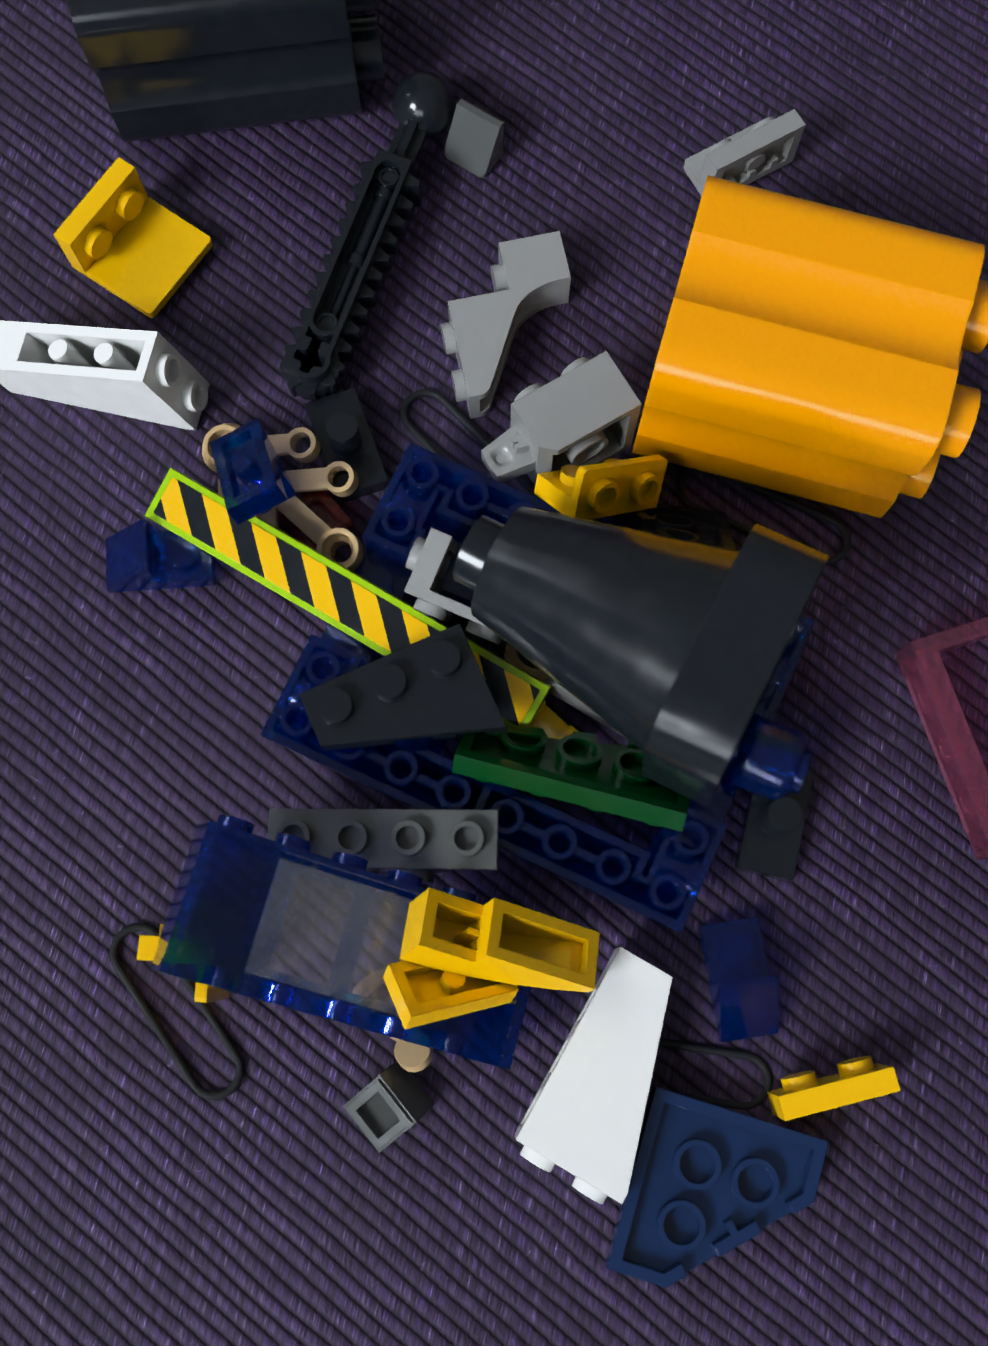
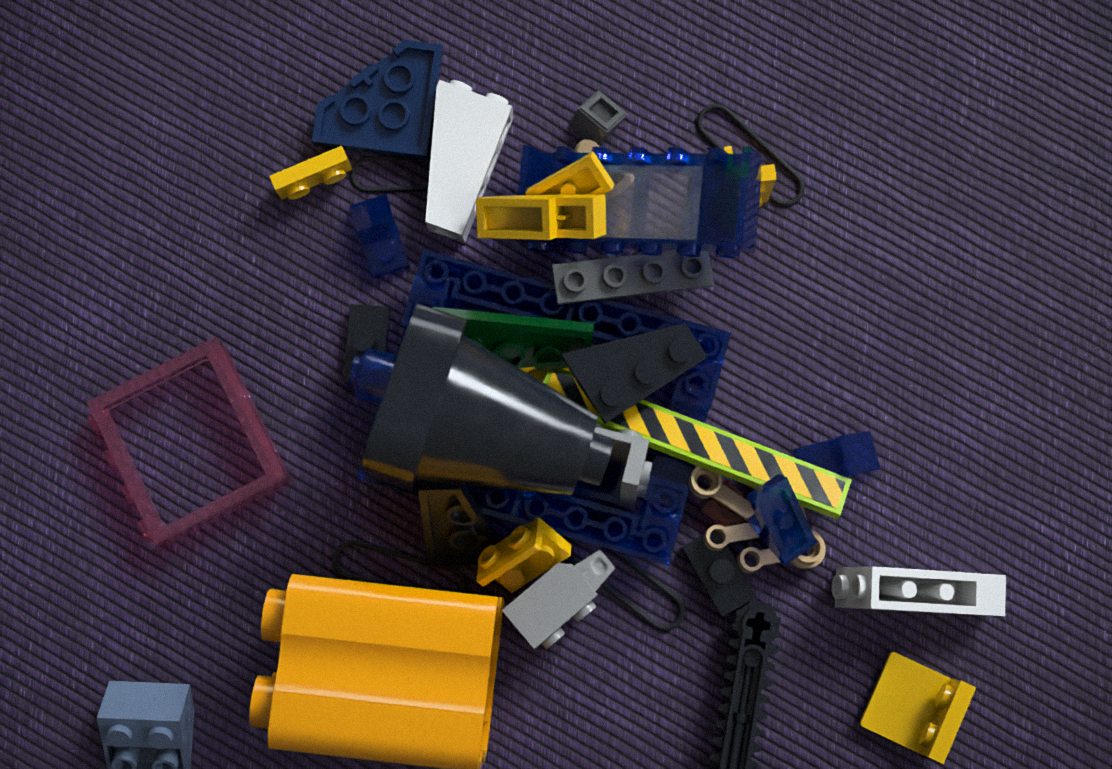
camera: 175 degrees right, 5 degrees up
(481, 328) = (631, 678): light grey arch -> none

